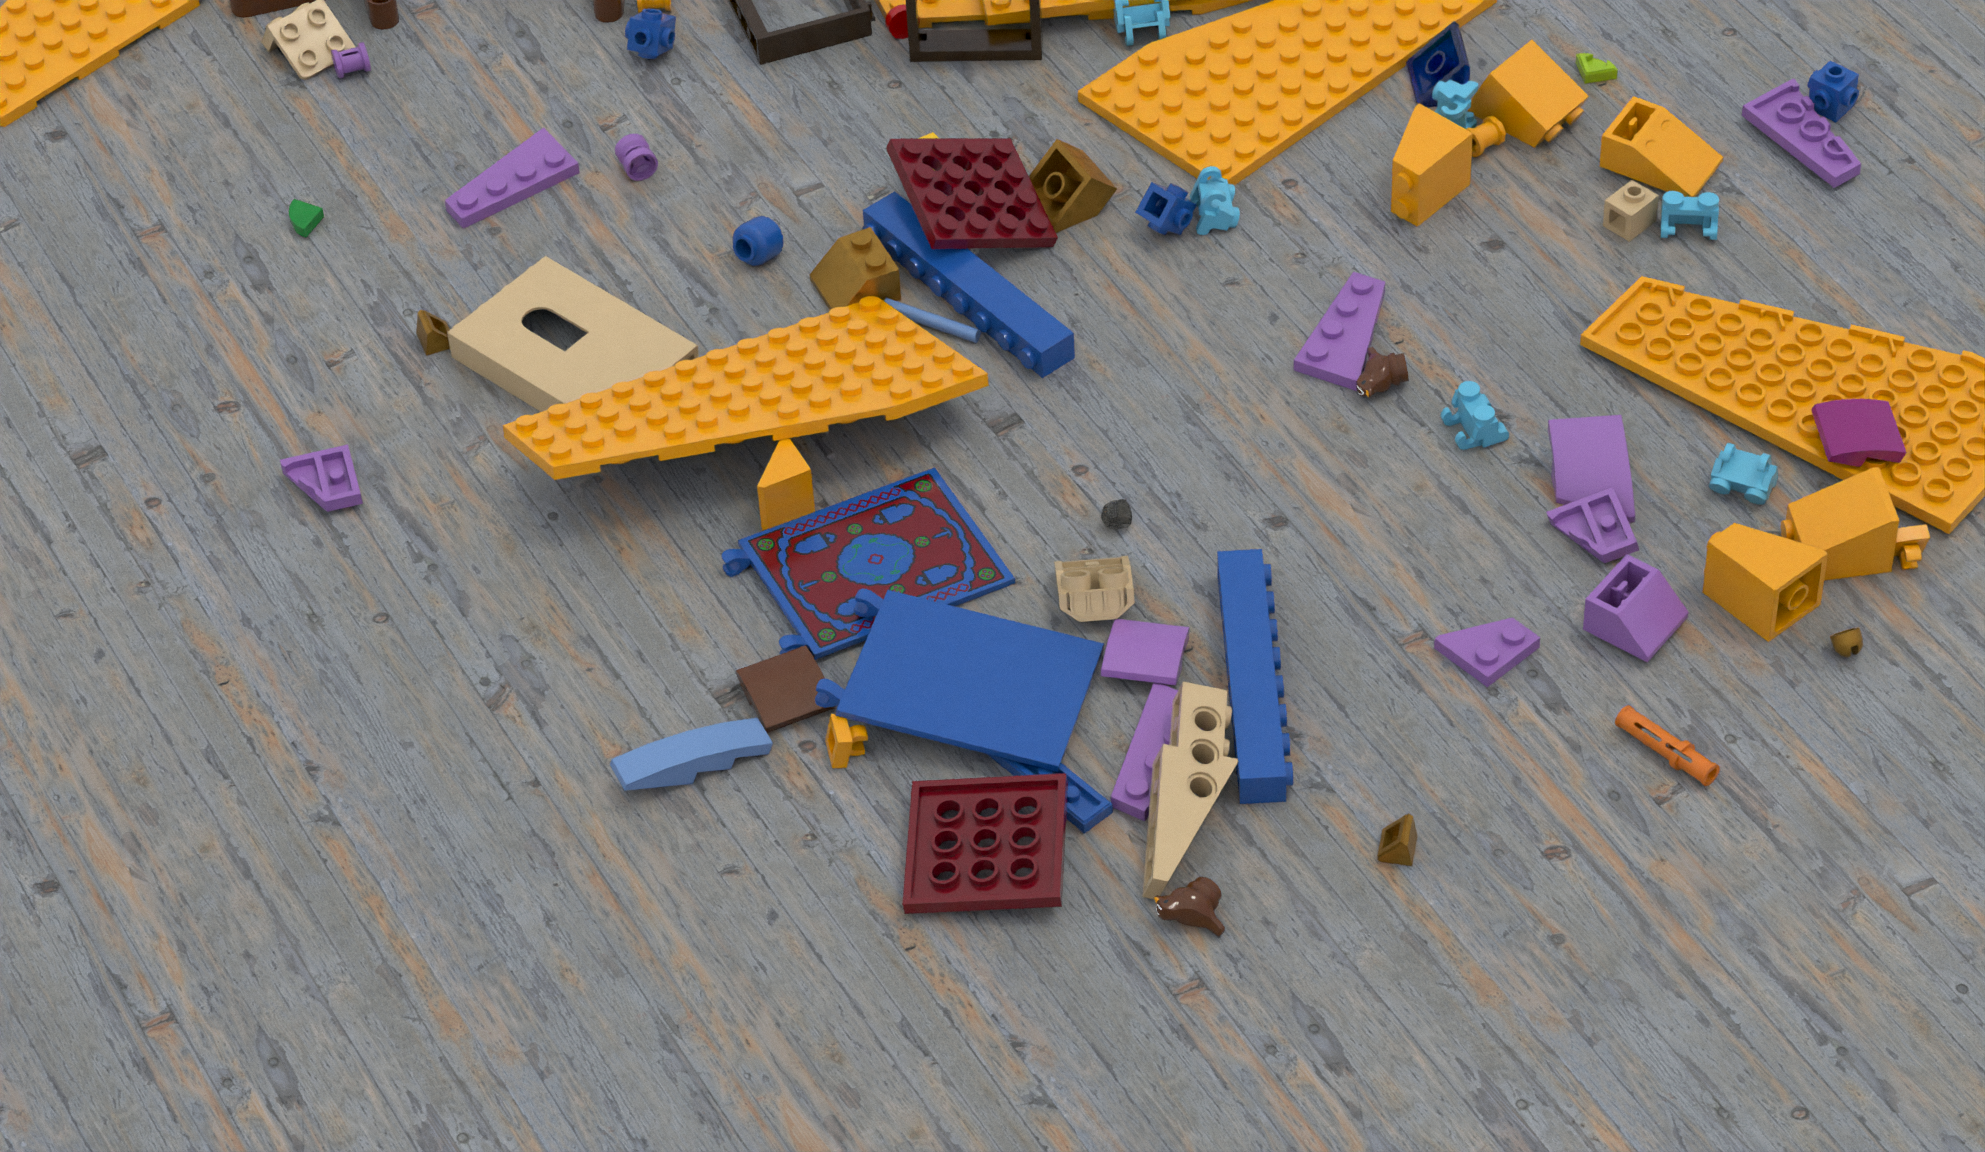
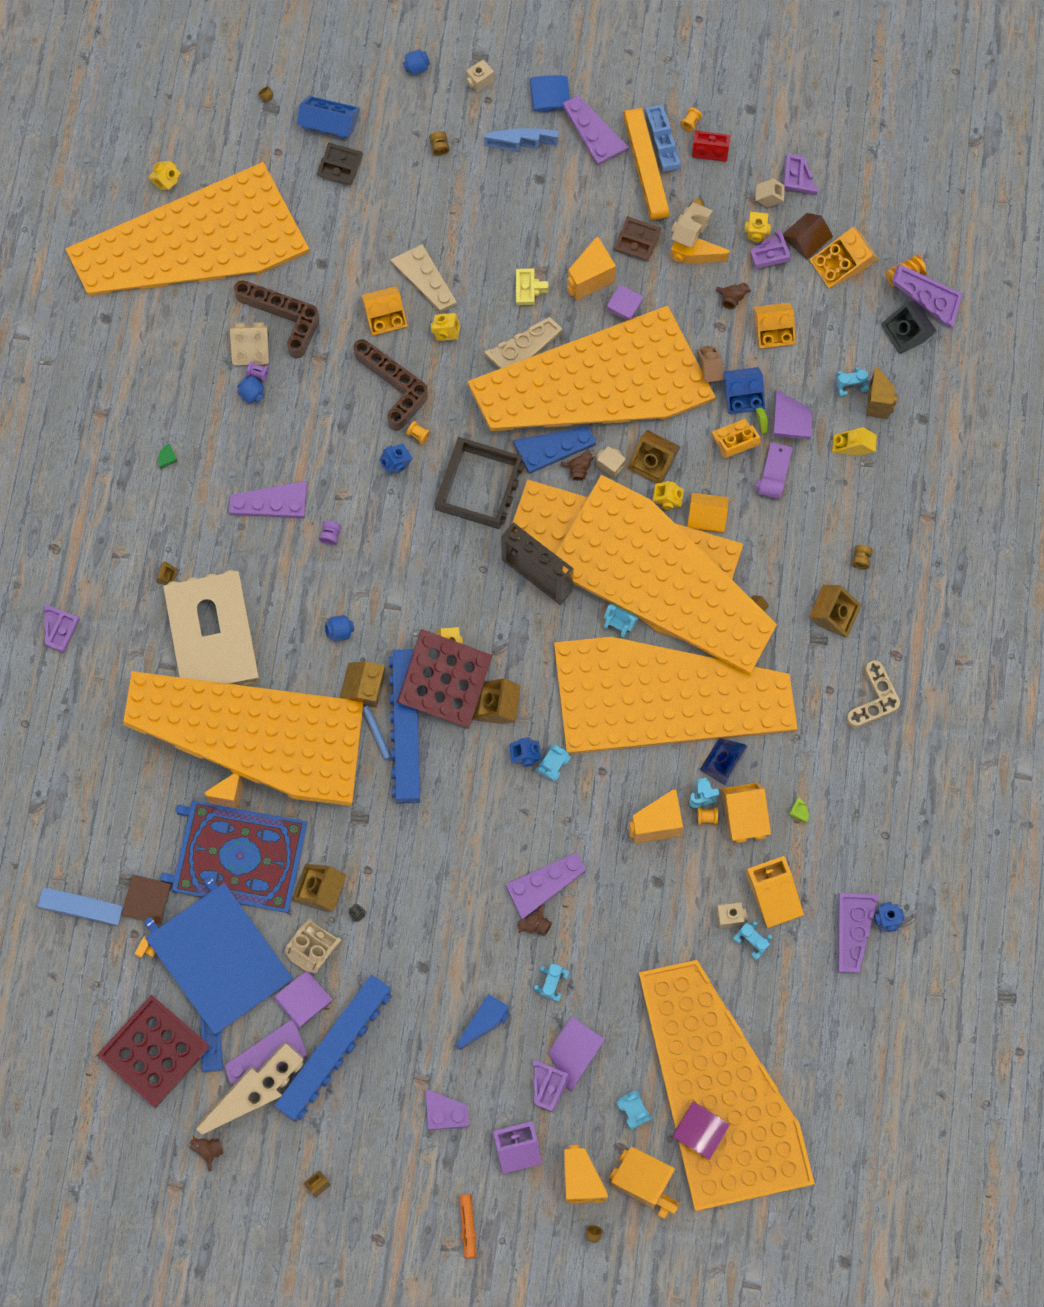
camera: 35 degrees right, 25 degrees up
(360, 81) = (250, 389): none -> blue head
(1032, 517) = (319, 887): none -> pearl gold slope
(1431, 509) = (486, 1019): none -> blue slope

